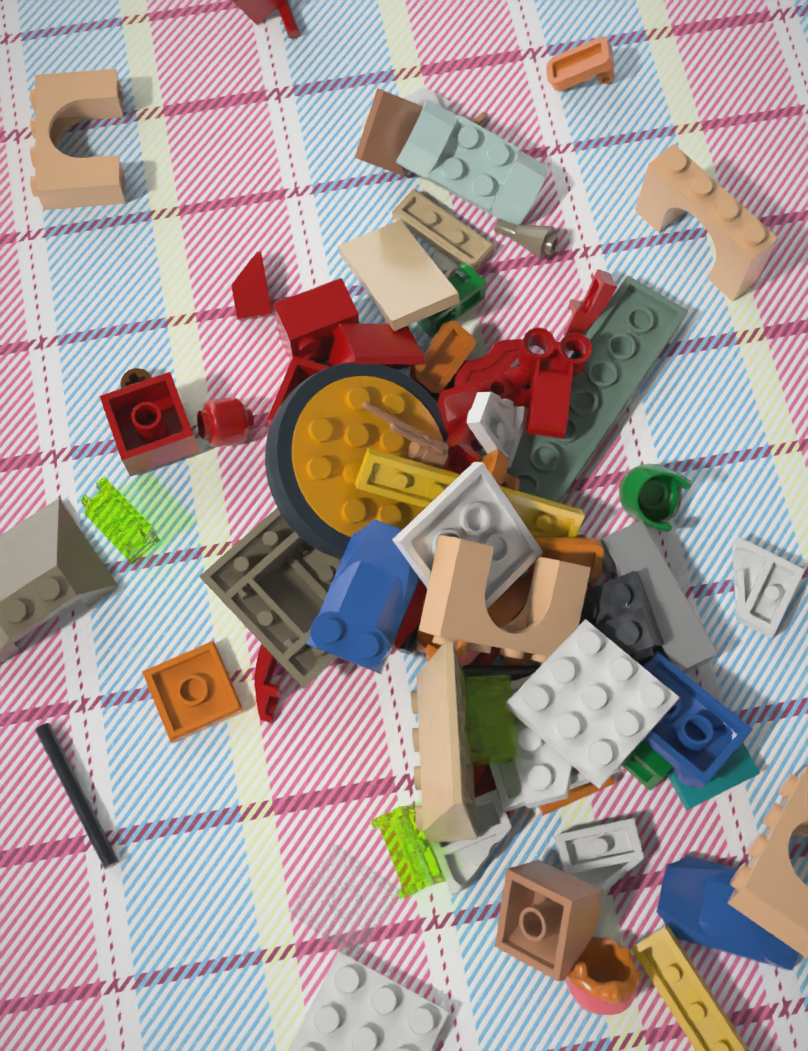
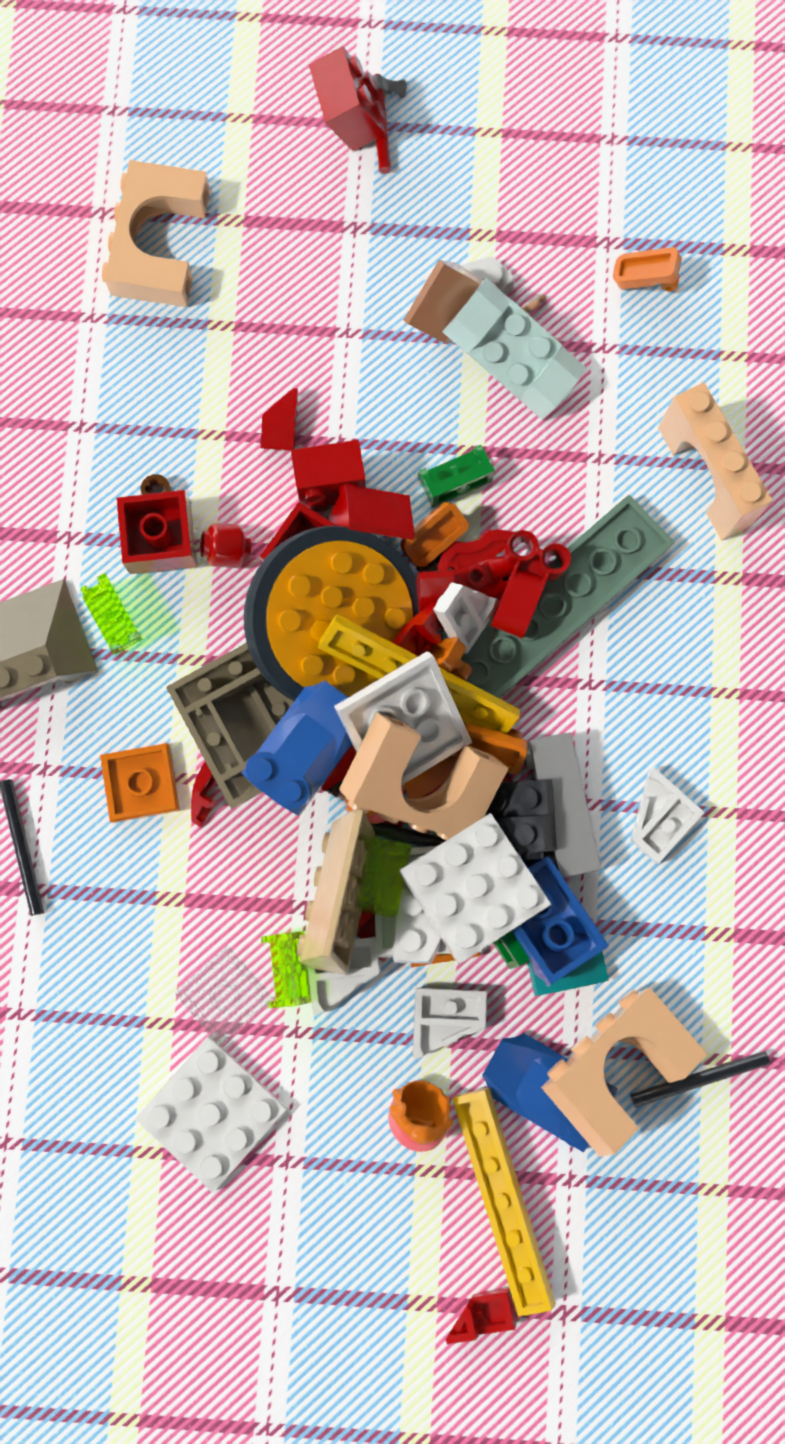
camera: 15 degrees right, 10 degrees up
(398, 275) = (415, 444): tan tile -> none
(422, 446) = (390, 622): nougat plant -> none
(442, 230) = (471, 406): tan tile -> none
(534, 238) = (555, 436): dark tan cone -> none
(546, 917) = (386, 1056): nougat slope -> none
(594, 302) = (583, 518): red slope -> none
(652, 495) = (587, 711): green piece -> none

